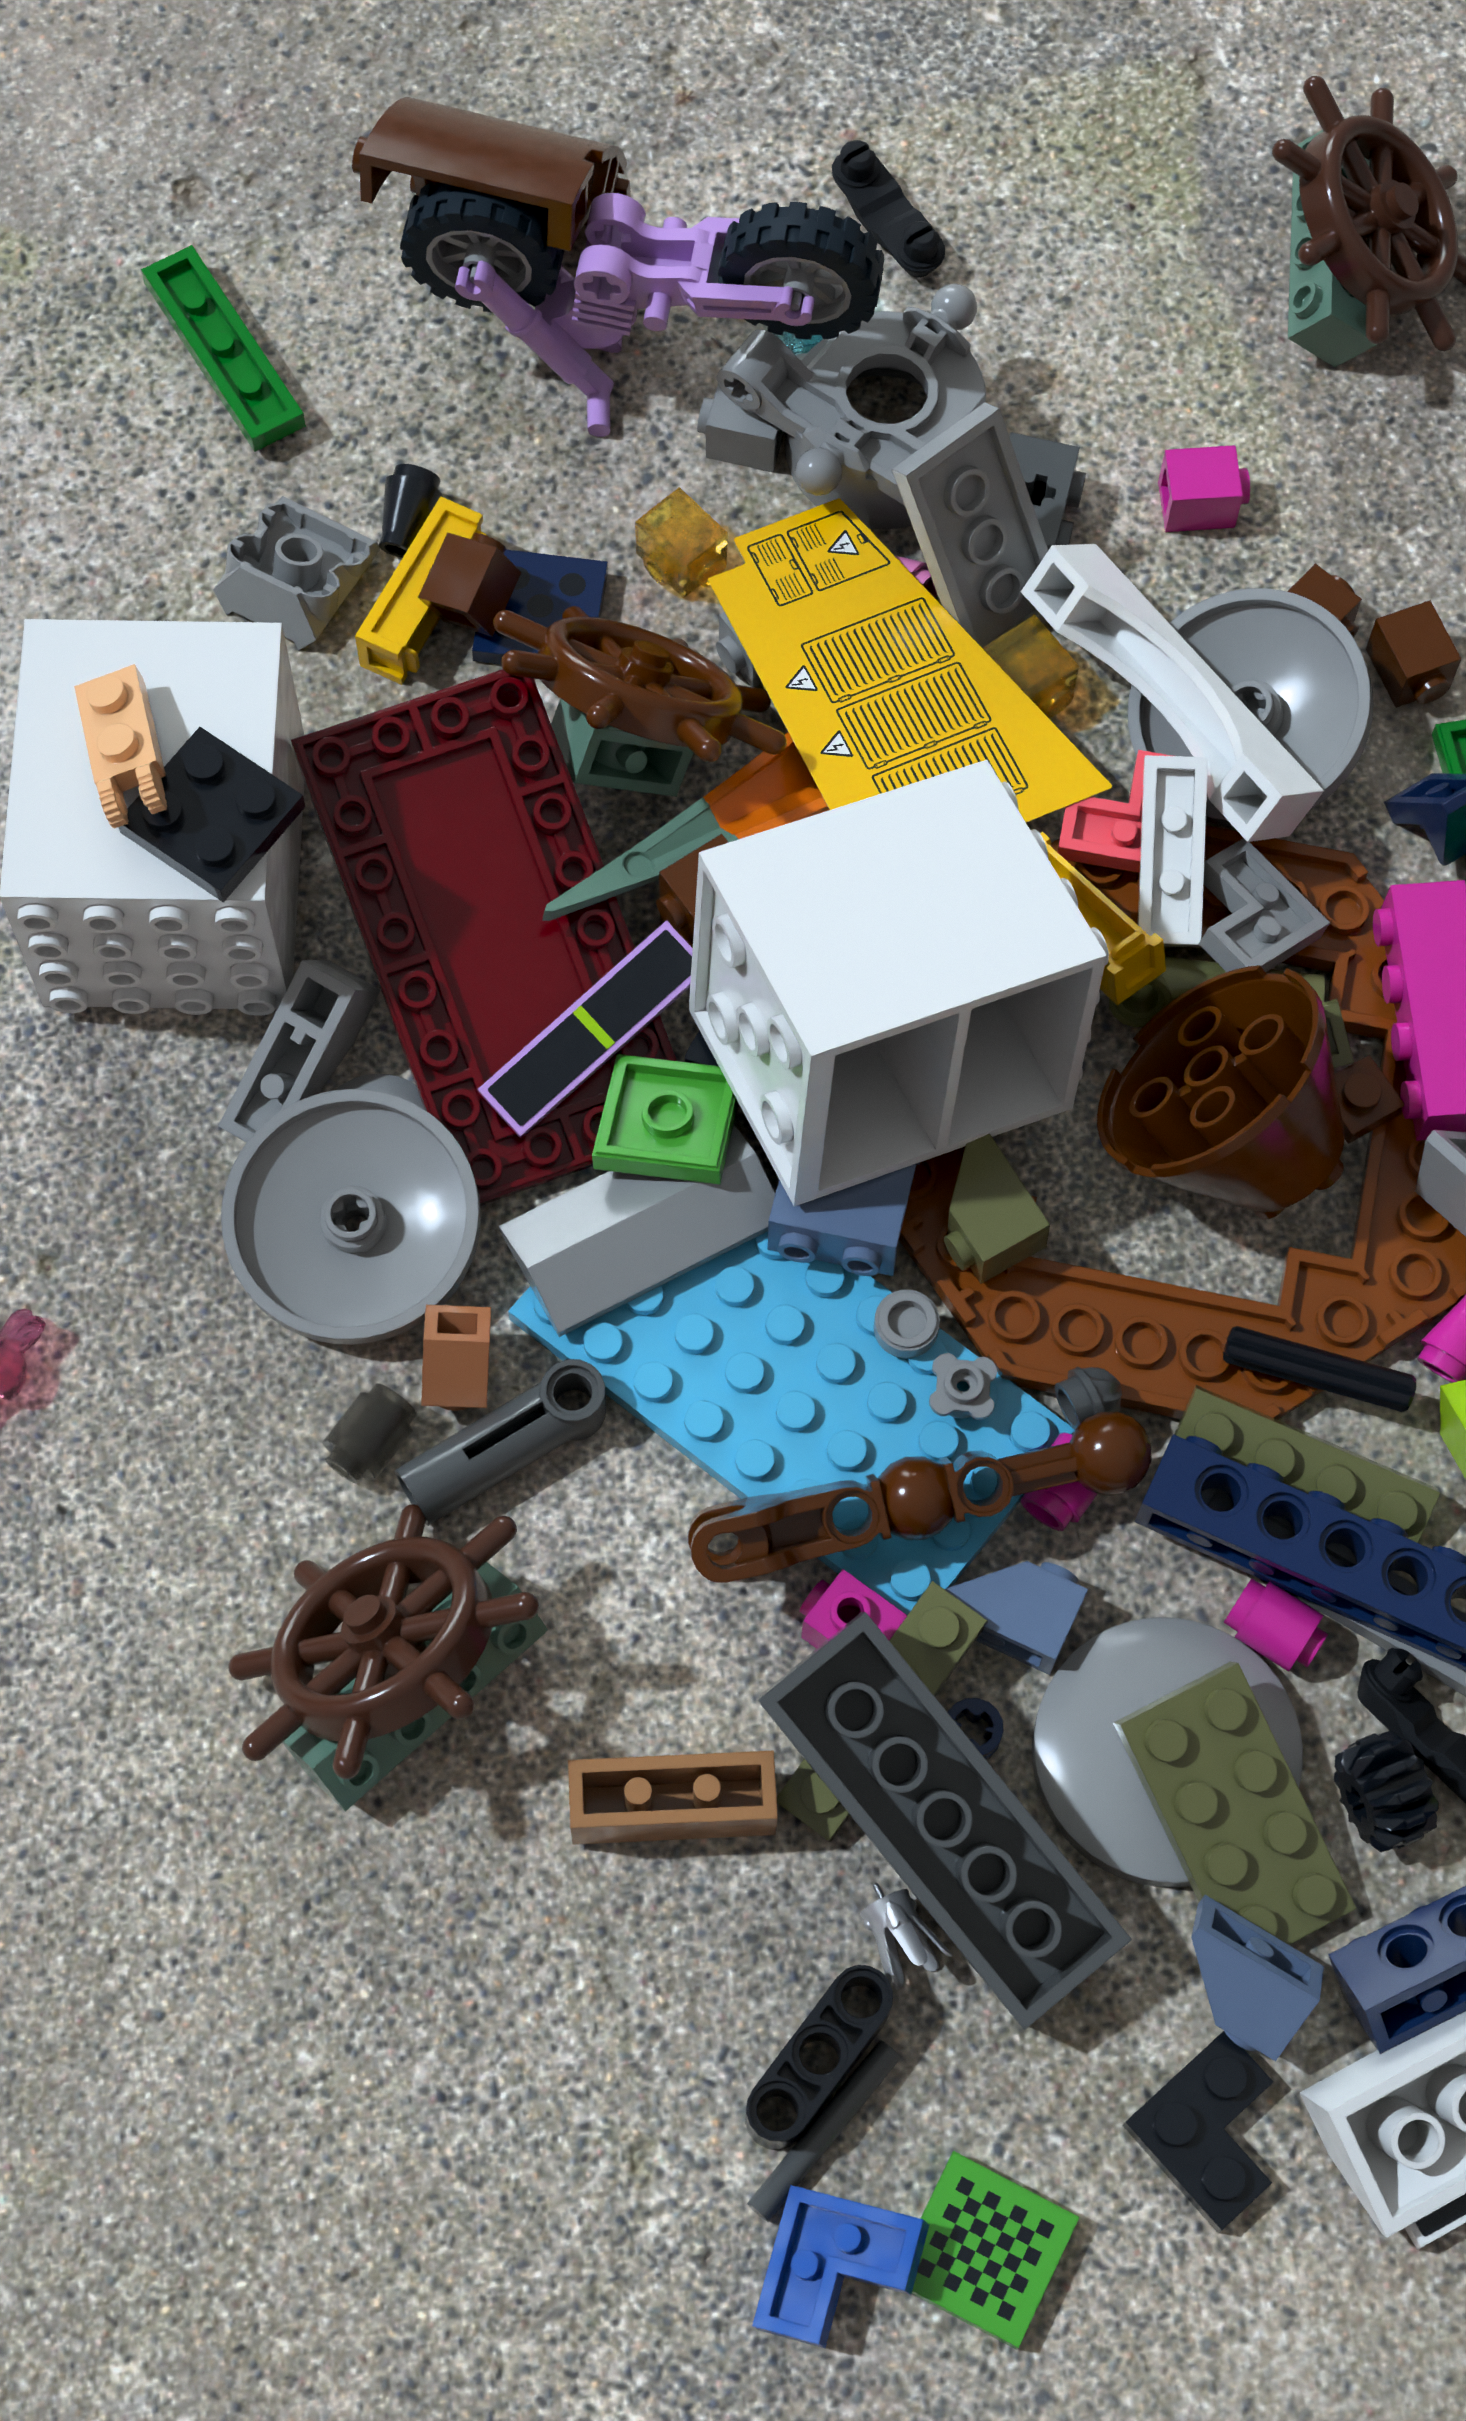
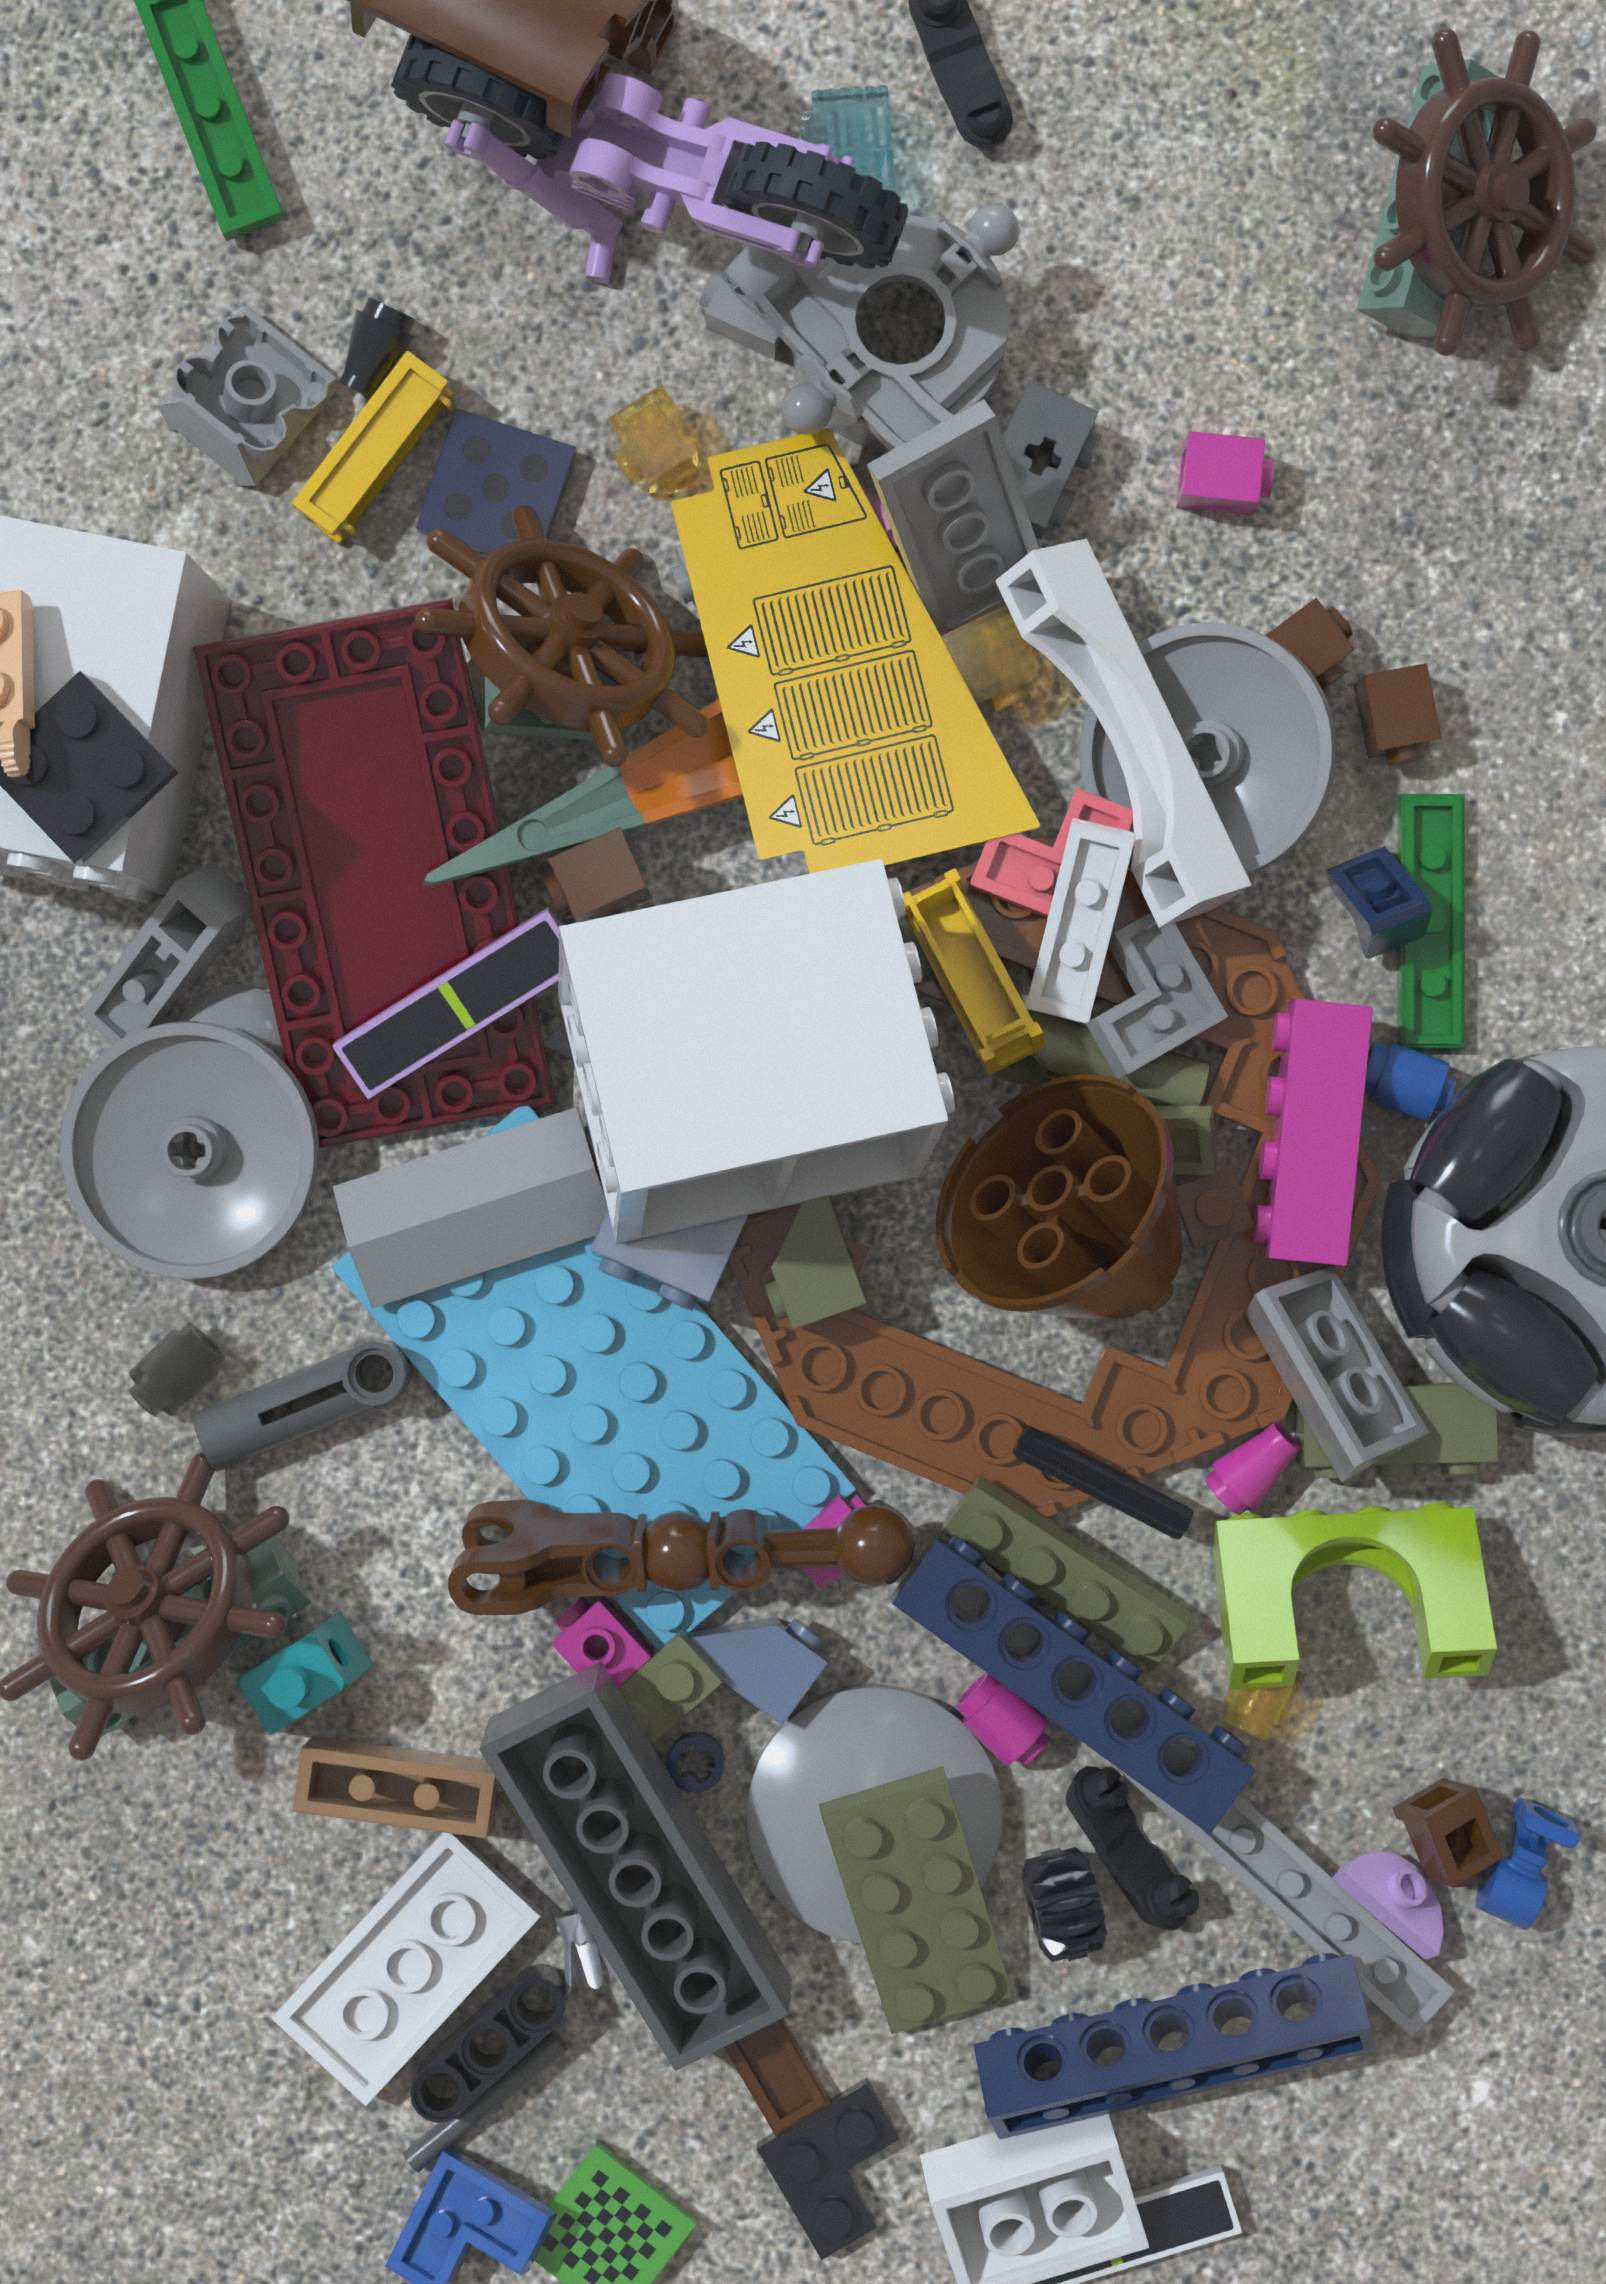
camera: 15 degrees right, 20 degrees up
(456, 1356) = (268, 1314): nougat brick -> none
(470, 582) = (420, 464): reddish brown brick -> none
(545, 1709) = (304, 1673): none -> teal torso
(666, 1120) = (512, 1114): bright green tile -> none
(713, 1995) = (407, 1965): none -> white plate
(906, 1323) = (712, 1360): light grey tile -> none
(958, 1404) = (767, 1428): light grey plate -> none
(1087, 1393) = (873, 1472): dark grey plate -> none
(1121, 2034) = (778, 2076): none -> reddish brown tile
(1253, 1980) = (898, 2055): sand blue slope -> none

